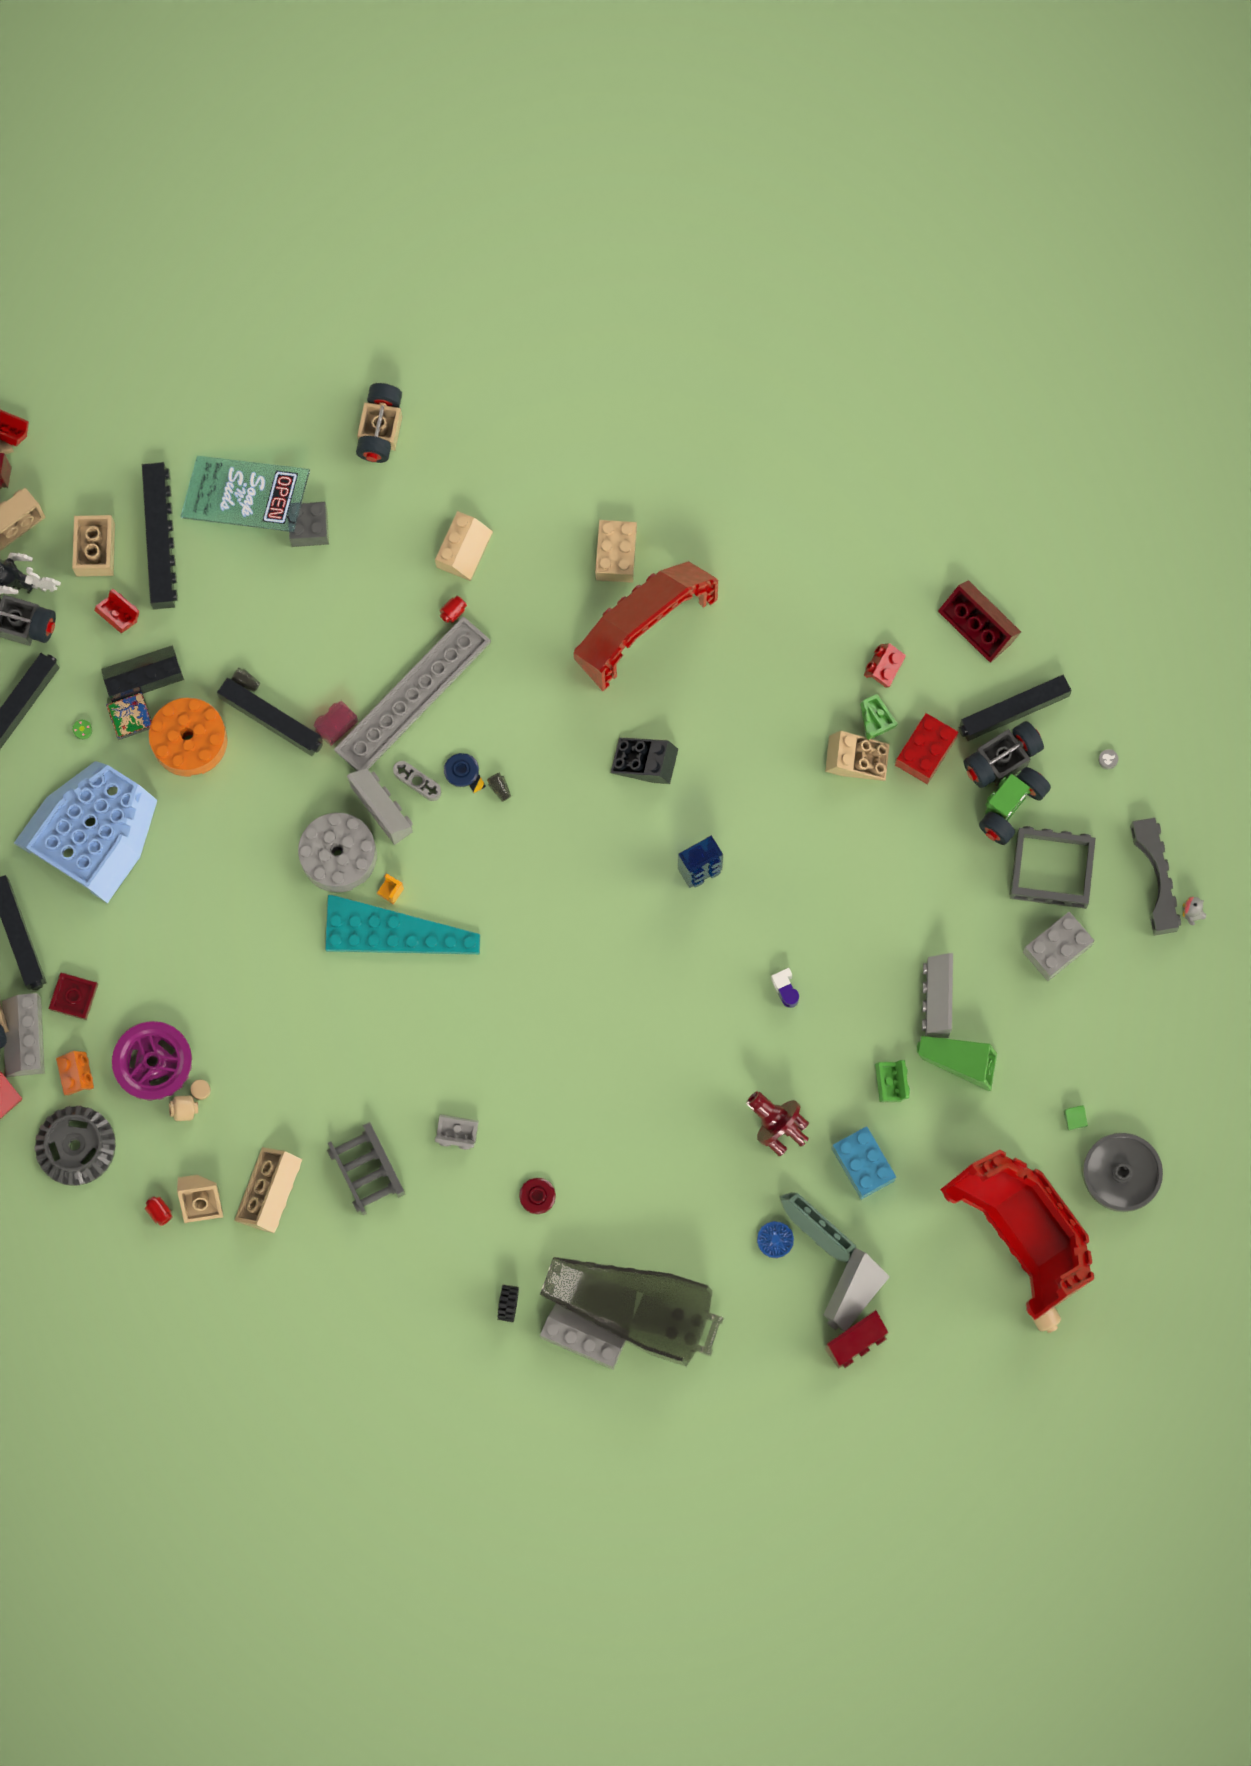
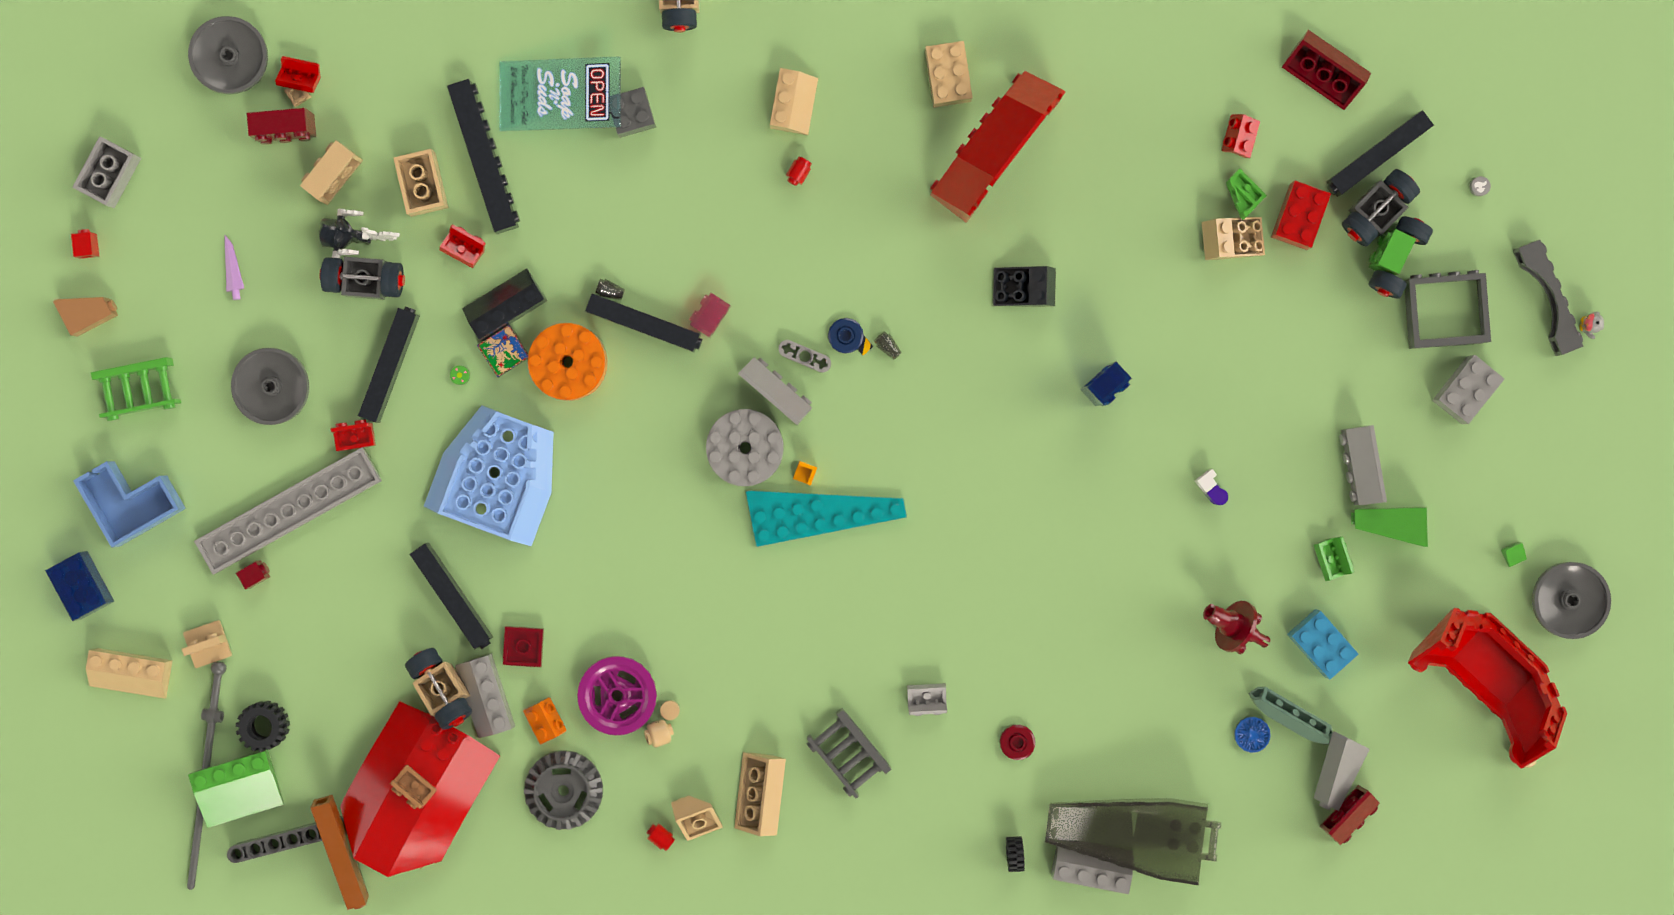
camera: 20 degrees left, 15 degrees up
(412, 695) = (779, 269): light grey plate -> none

